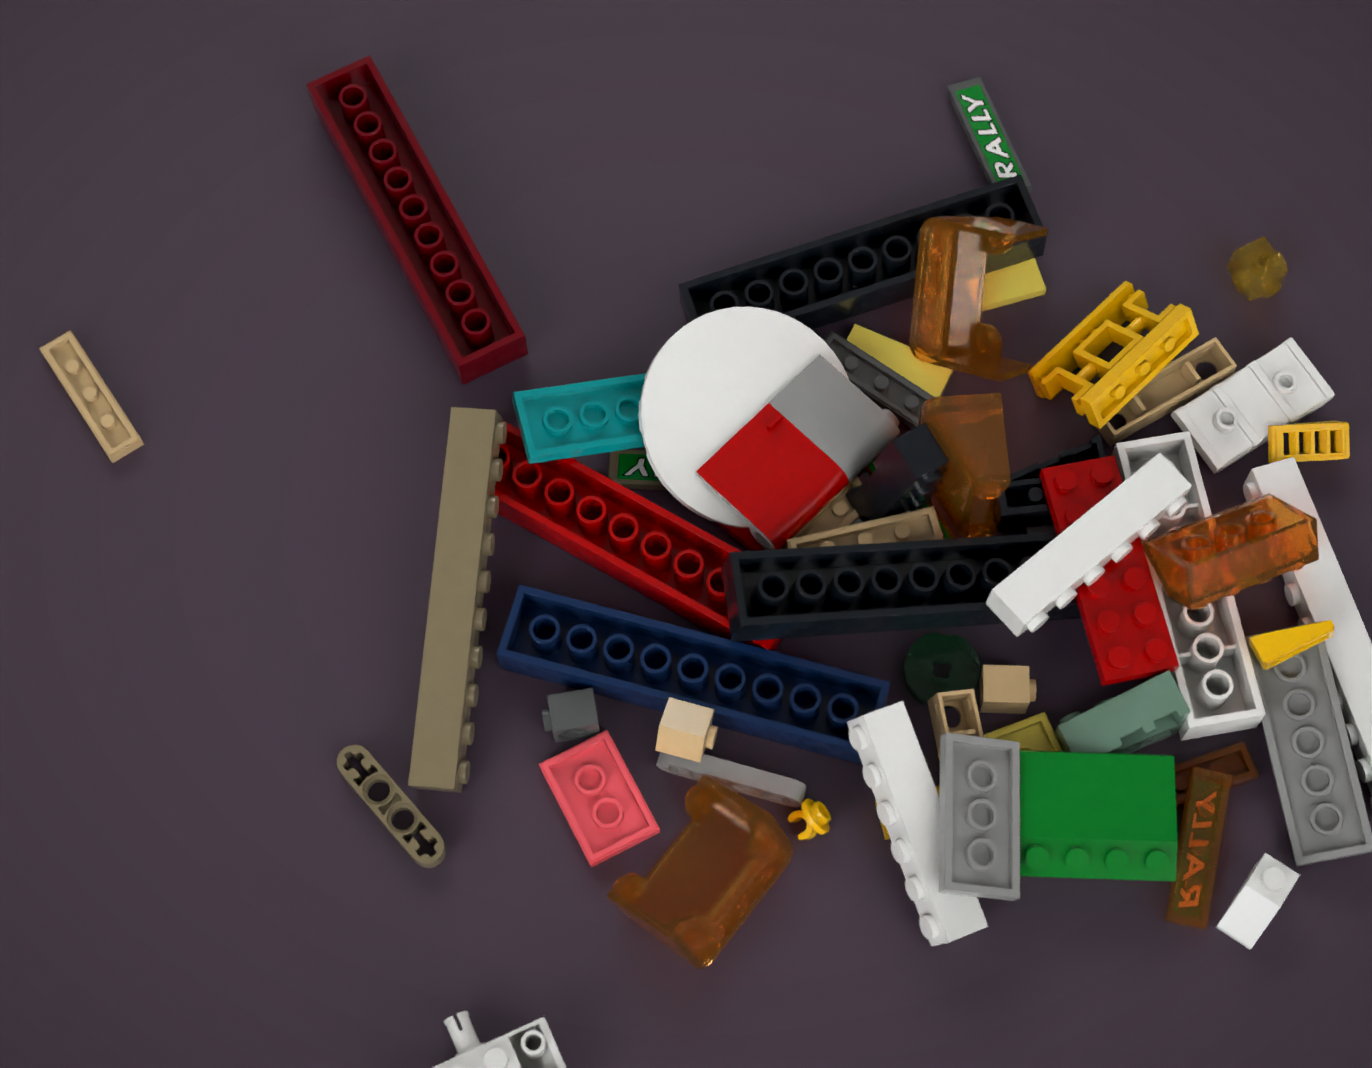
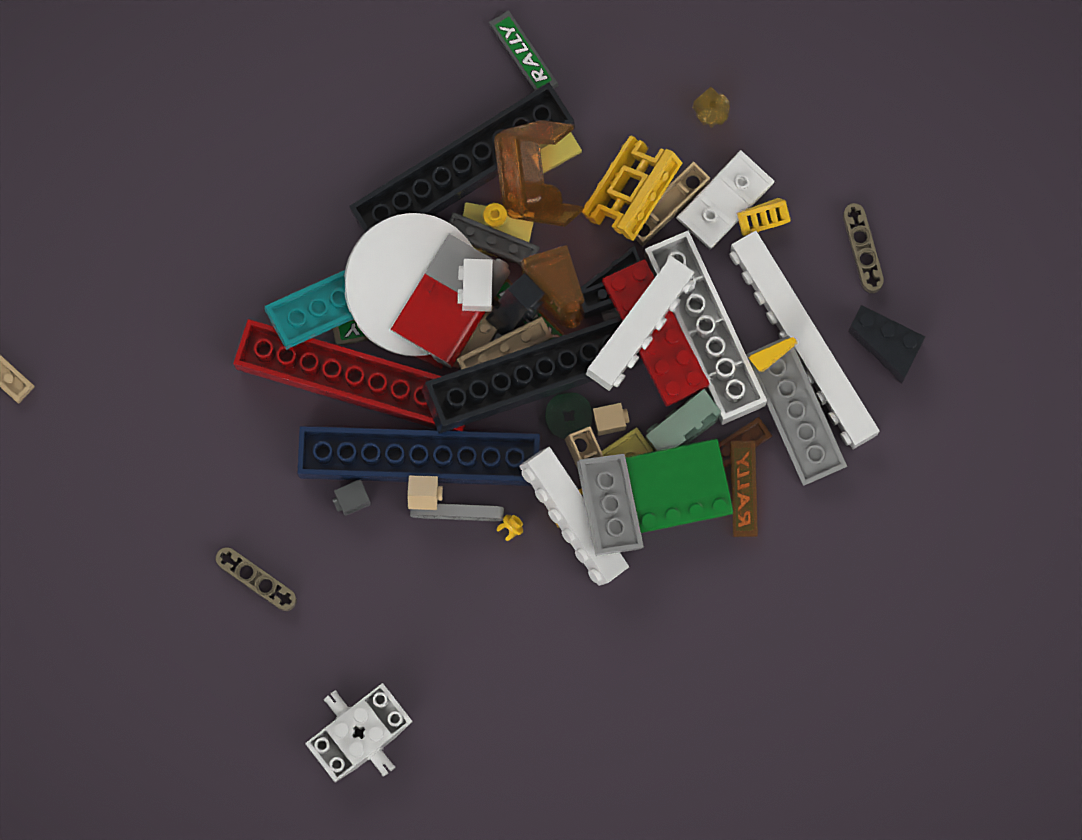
camera: 15 degrees left, 10 degrees up
(417, 220) = (167, 196): dark red brick -> none
(456, 600) = (263, 443): dark tan brick -> none
(599, 798) = (380, 544): coral tile -> none
(707, 875) = (457, 575): clear orange windscreen -> none
(844, 433) = (476, 285): none -> white brick
(895, 347) = (495, 215): none -> yellow plate
(1233, 550) = (728, 303): clear orange slope -> none
(1257, 900) = (784, 513): white slope -> none

